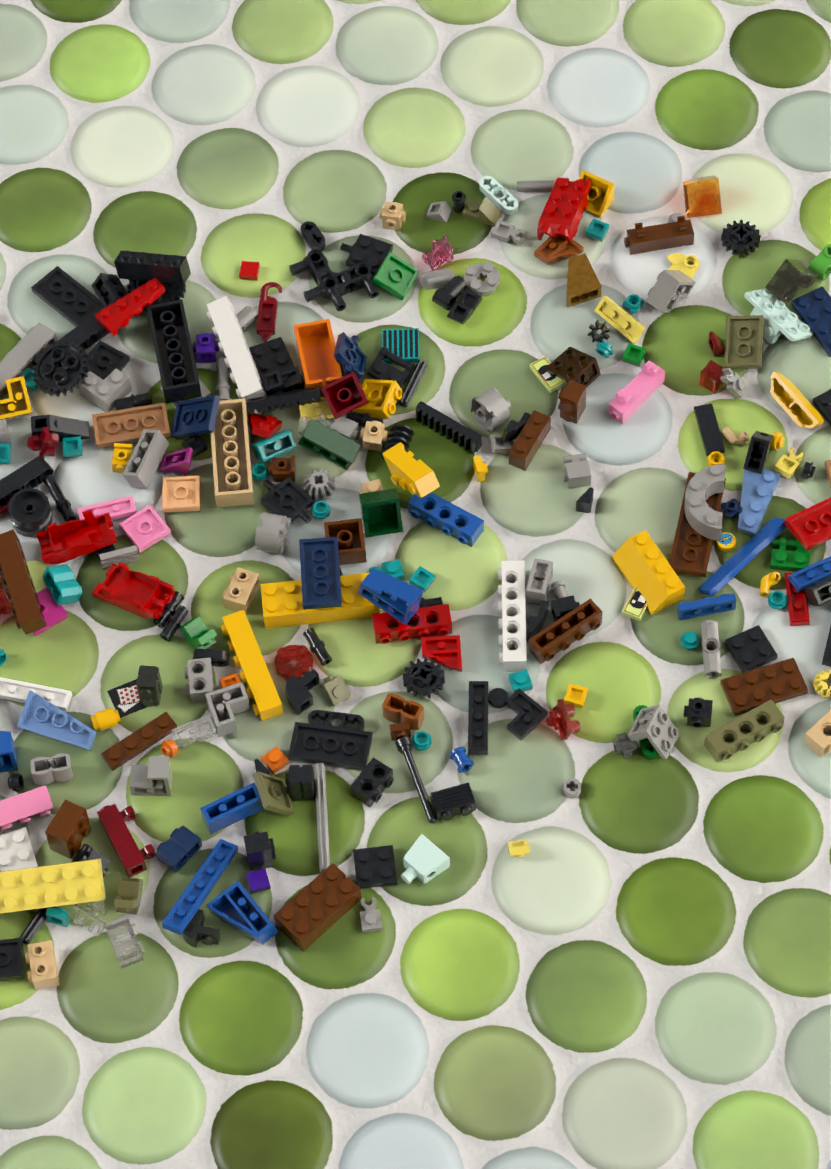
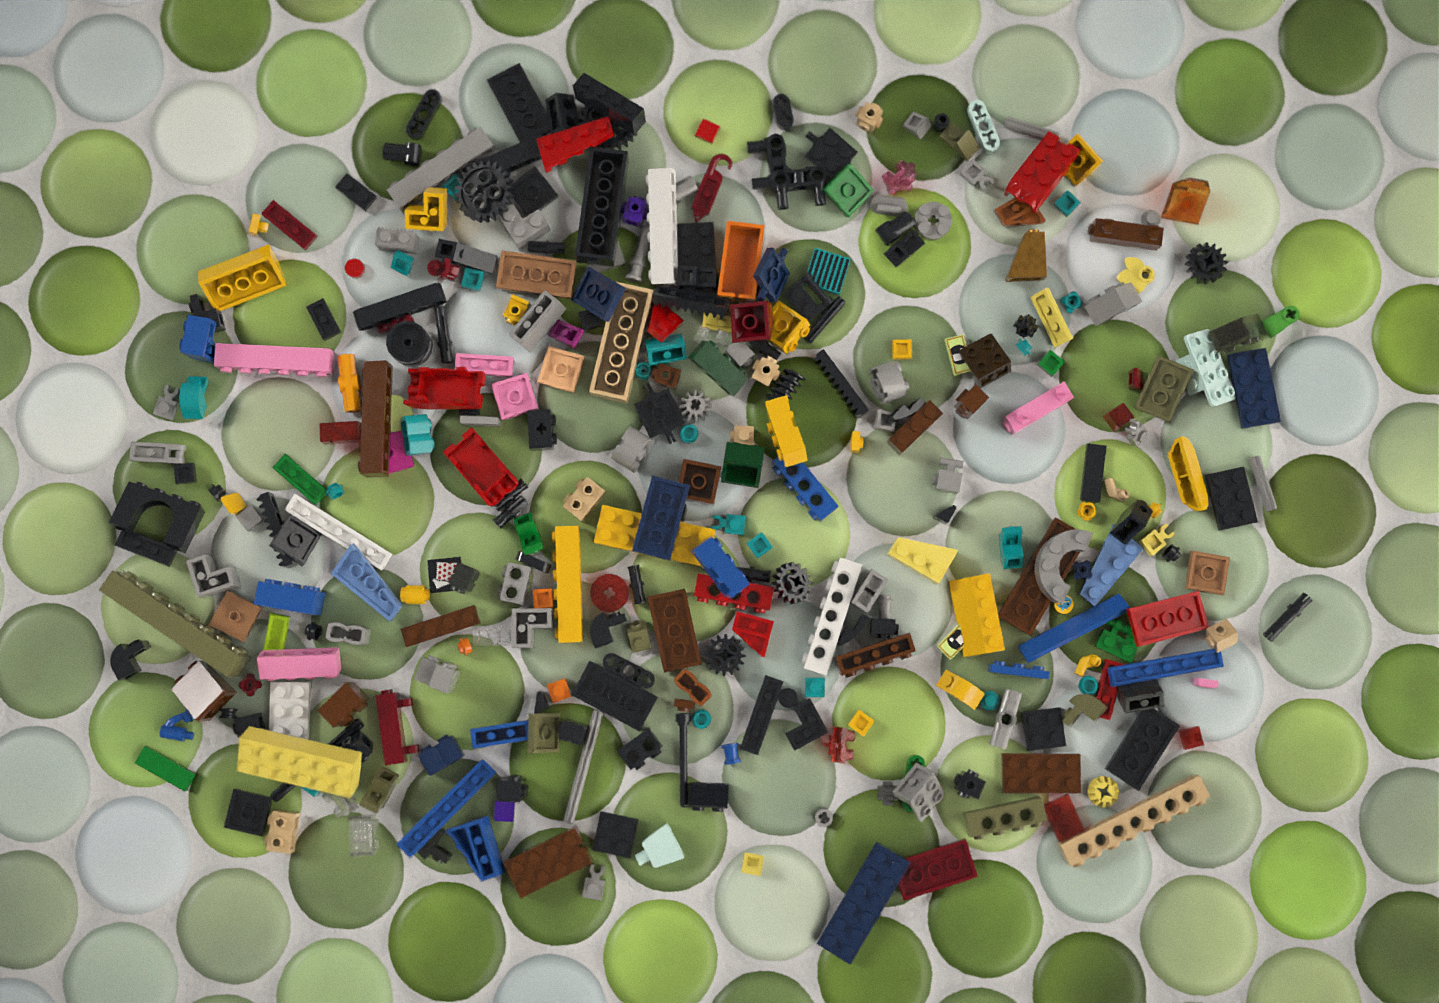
camera: 15 degrees right, 25 degrees up
(180, 547) = (536, 420): none -> black brick
(366, 672) = (674, 630): none -> reddish brown plate
(464, 597) = (789, 584): none -> black gear
(494, 381) = (901, 349): none -> yellow tile
(578, 541) = (923, 558): none -> light yellow wedge
(638, 846) = (863, 902): none -> dark blue plate
(656, 507) = (1010, 547): none -> teal brick
(659, 633) = (960, 689): none -> yellow brick
(695, 797) = (937, 869): none -> dark red plate
(780, 612) = (1084, 704): none -> olive brick
(799, 714) = (1063, 818): none -> clear red plate

